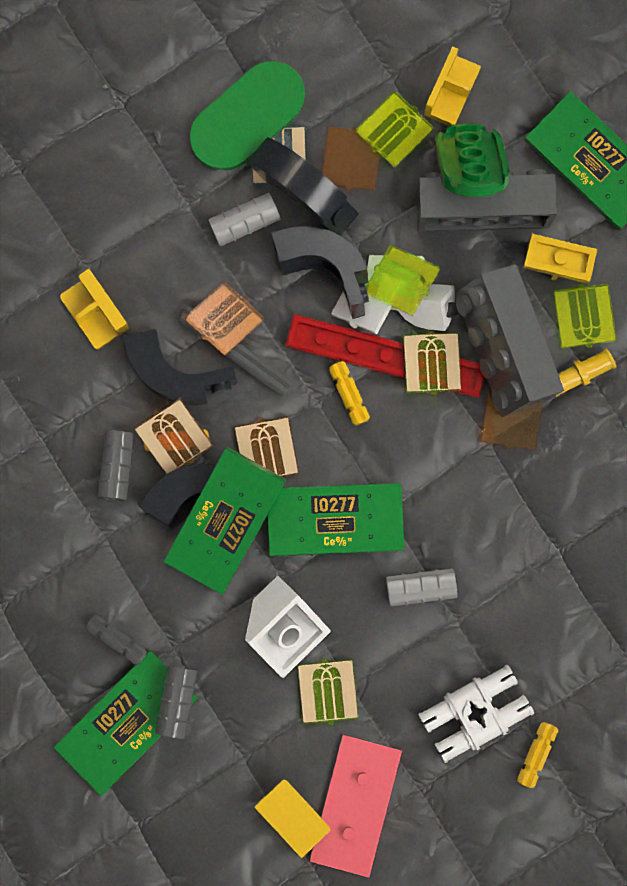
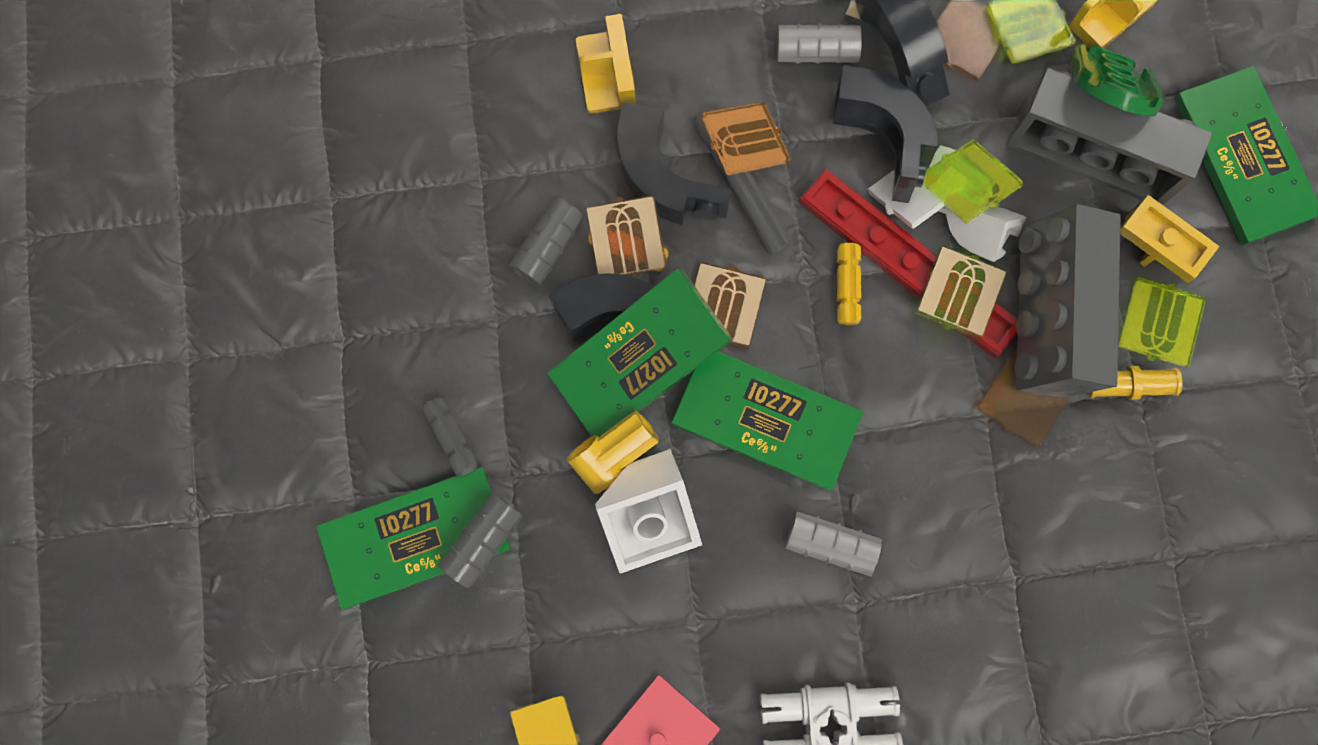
camera: 30 degrees right, 5 degrees down
(234, 604) = (604, 458): none -> yellow piece
(327, 691) = (665, 615): piece -> none

